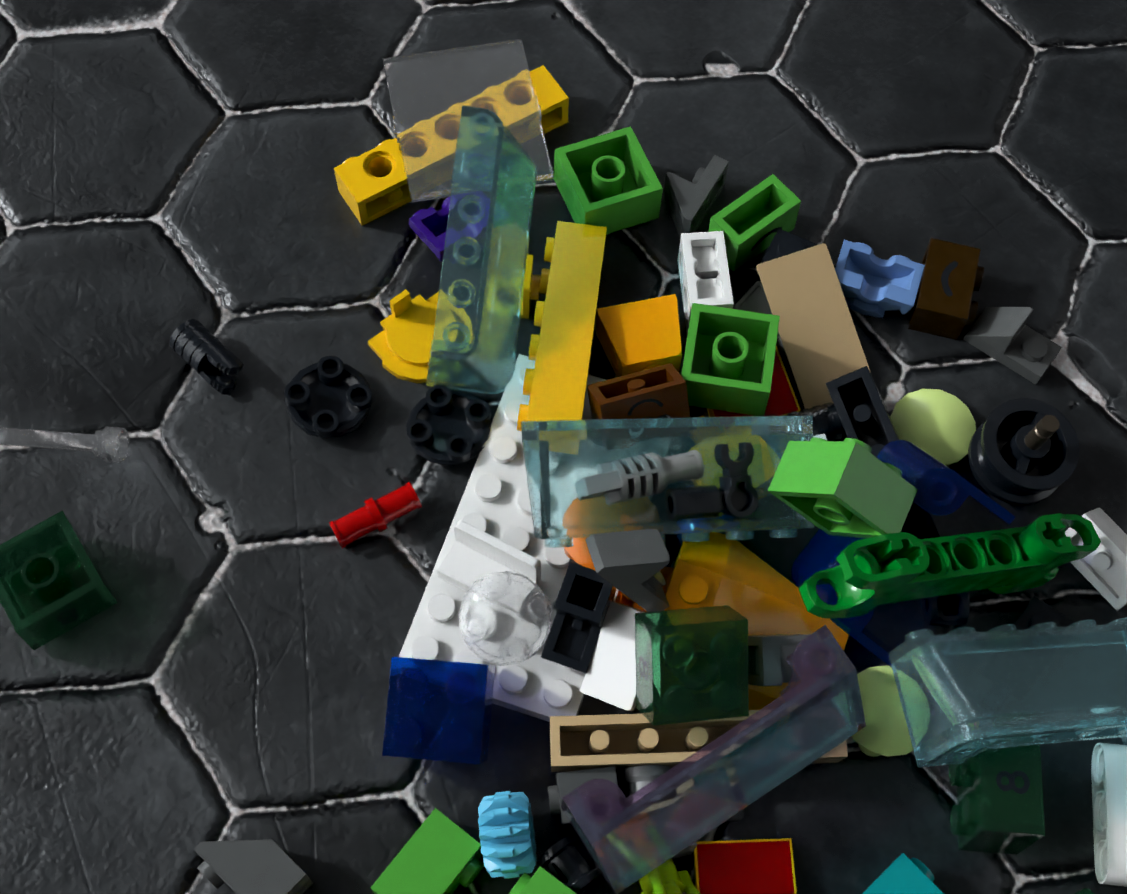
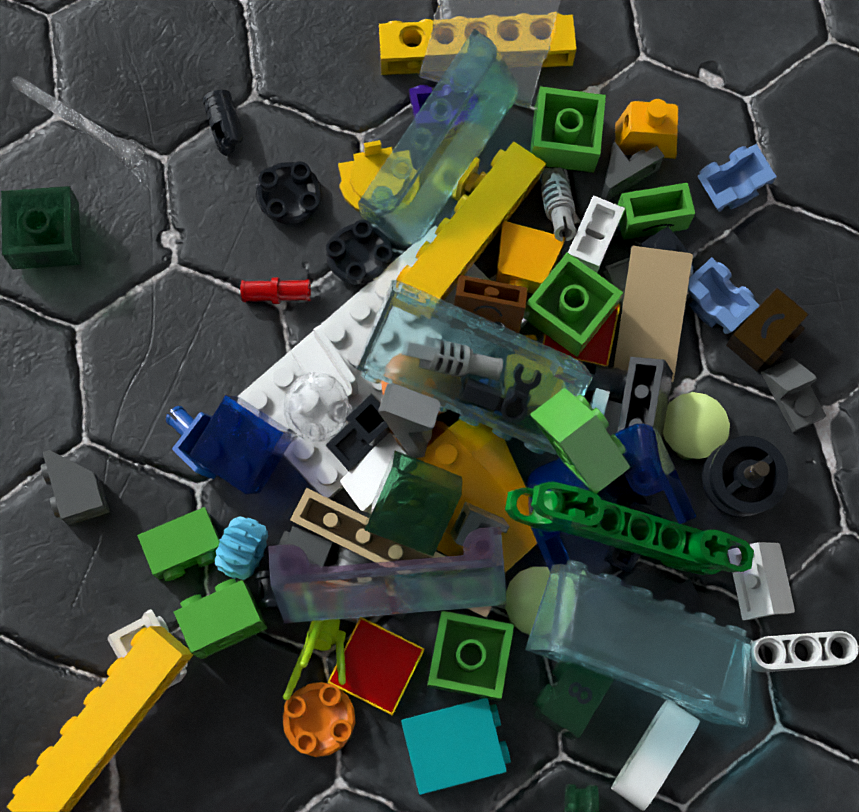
camera: 25 degrees right, 10 degrees up
(369, 731) = (190, 432): none -> blue bracket
(644, 263) = (558, 202): none -> light grey hinge
(692, 139) = (647, 126): none -> light orange torso
(817, 150) = (737, 179): none -> medium blue cylinder
(852, 815) = (470, 656): none -> bright green brick

